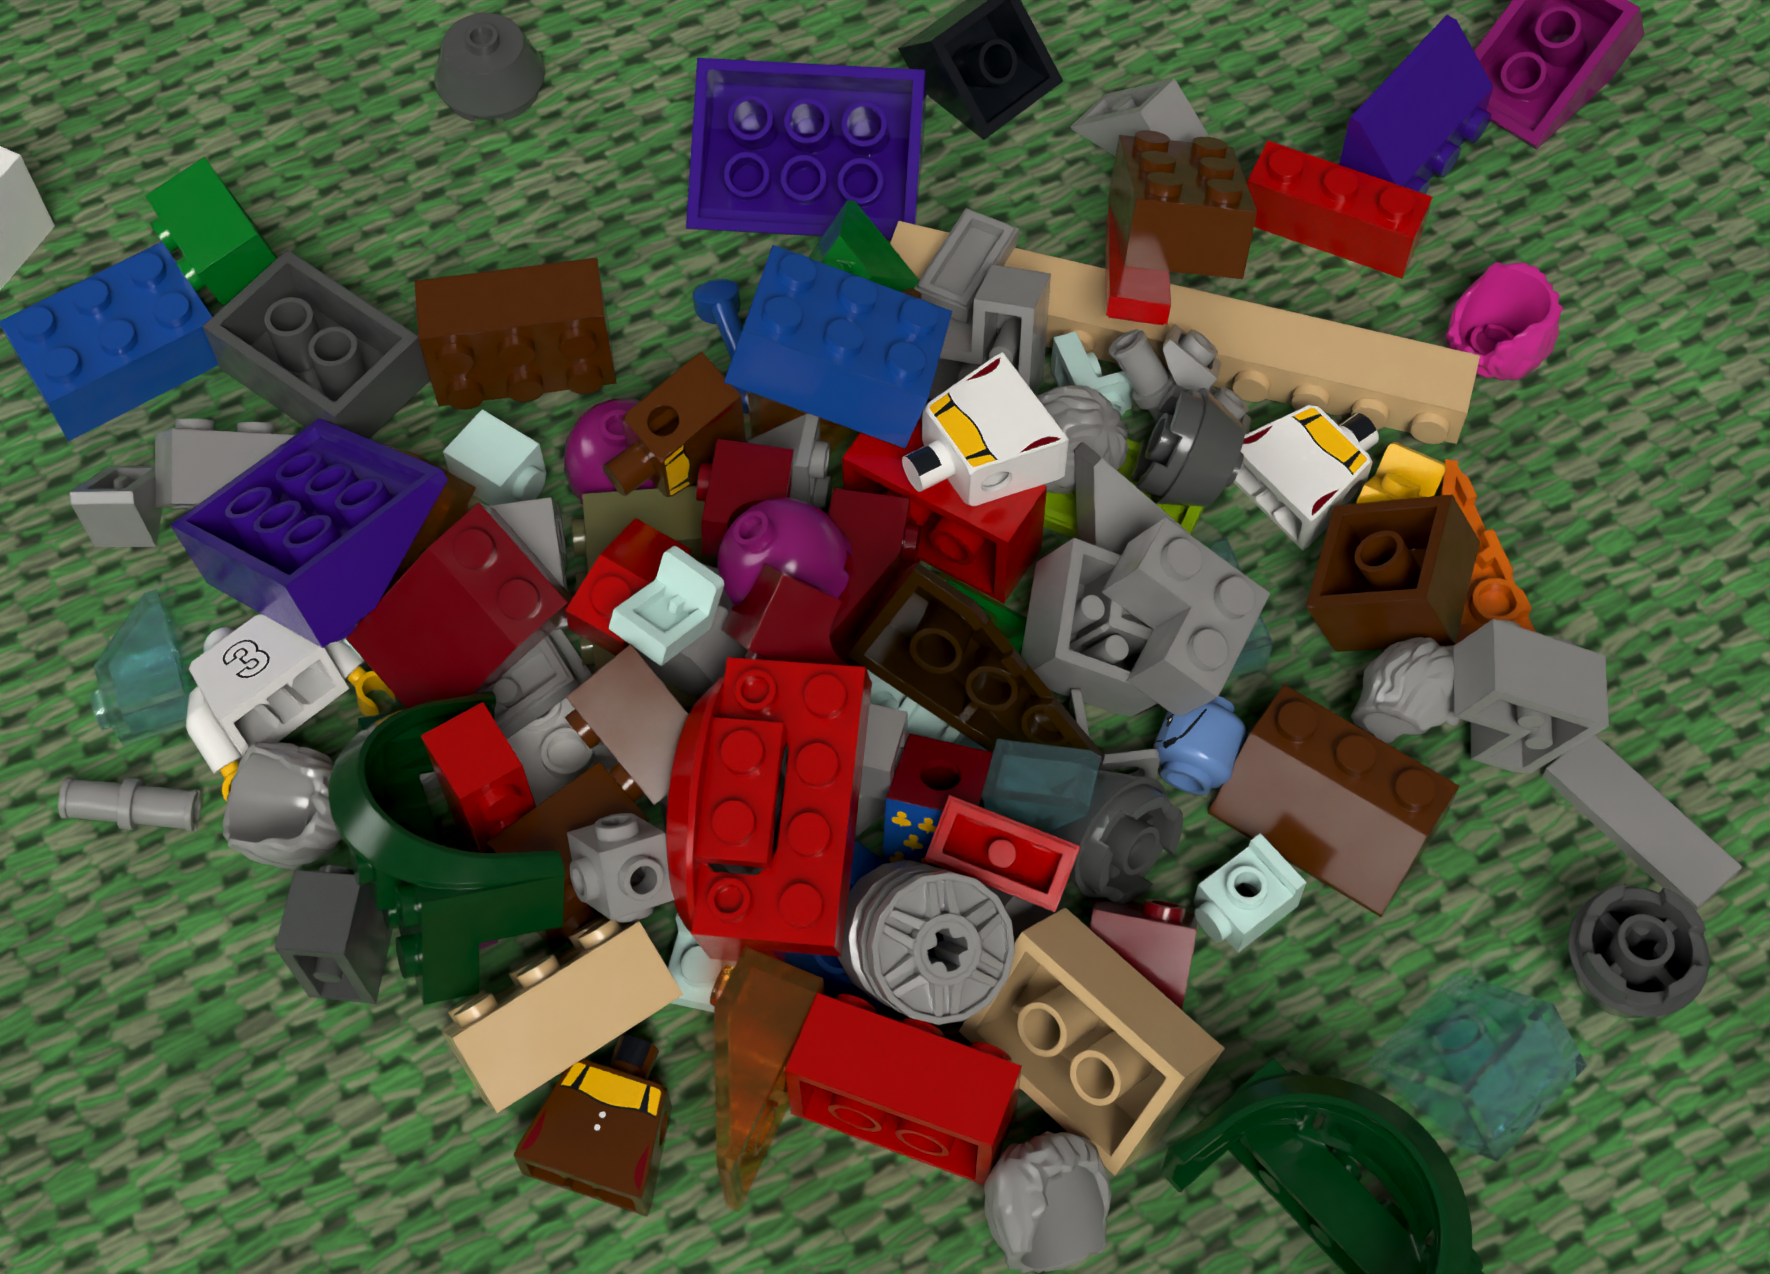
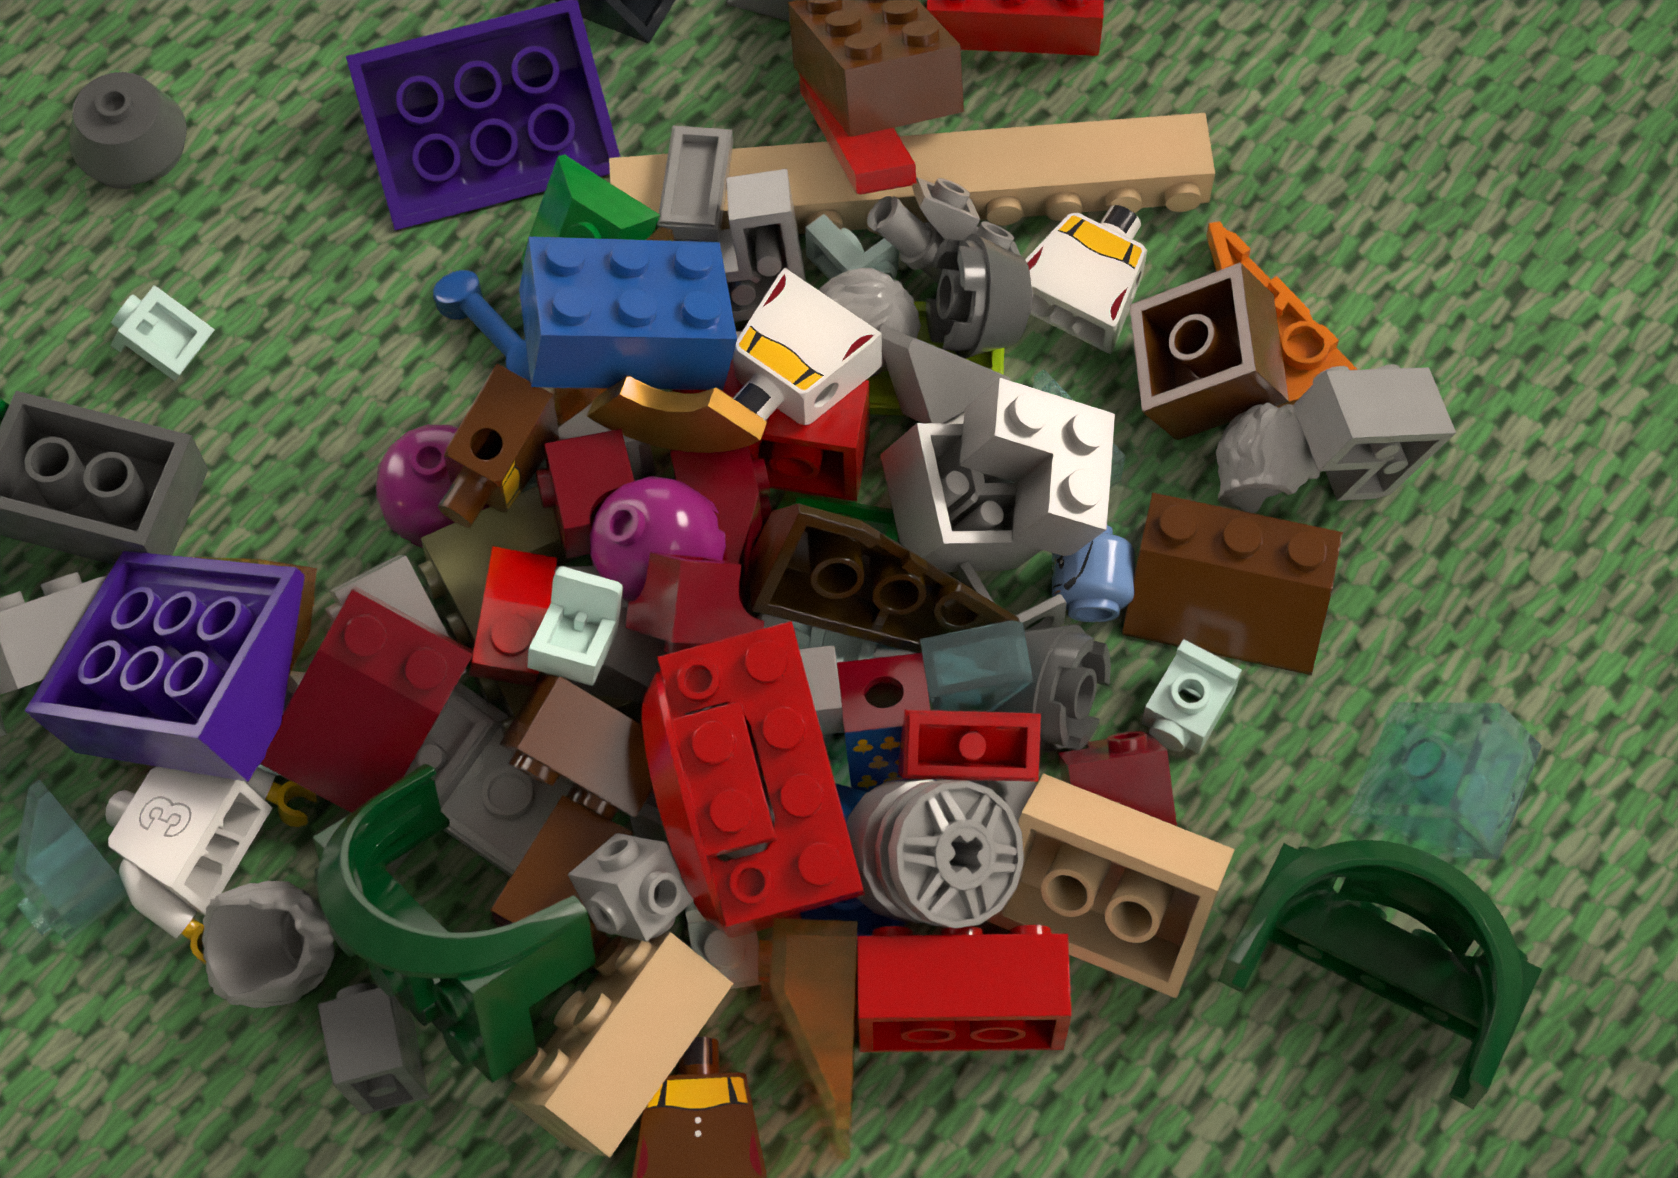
camera: 20 degrees left, 5 degrees up
(130, 803) = (104, 997): light grey pin -> none
(440, 243) = (160, 331): none -> light aqua bracket
(478, 775) = (458, 856): red brick -> none
(497, 461) = (317, 533): light aqua brick -> none
(515, 333) = (284, 397): reddish brown brick -> none
(847, 459) = (677, 420): none -> pearl gold tile
(1048, 1202) = (1128, 1043): light grey hair -> none
(1403, 475) = (1178, 256): yellow bracket -> none
(1506, 320) = (1216, 70): dark pink hair -> none
(1639, 951) = (1550, 627): dark grey cone -> none
(1641, 822) = (1506, 506): light grey tile -> none

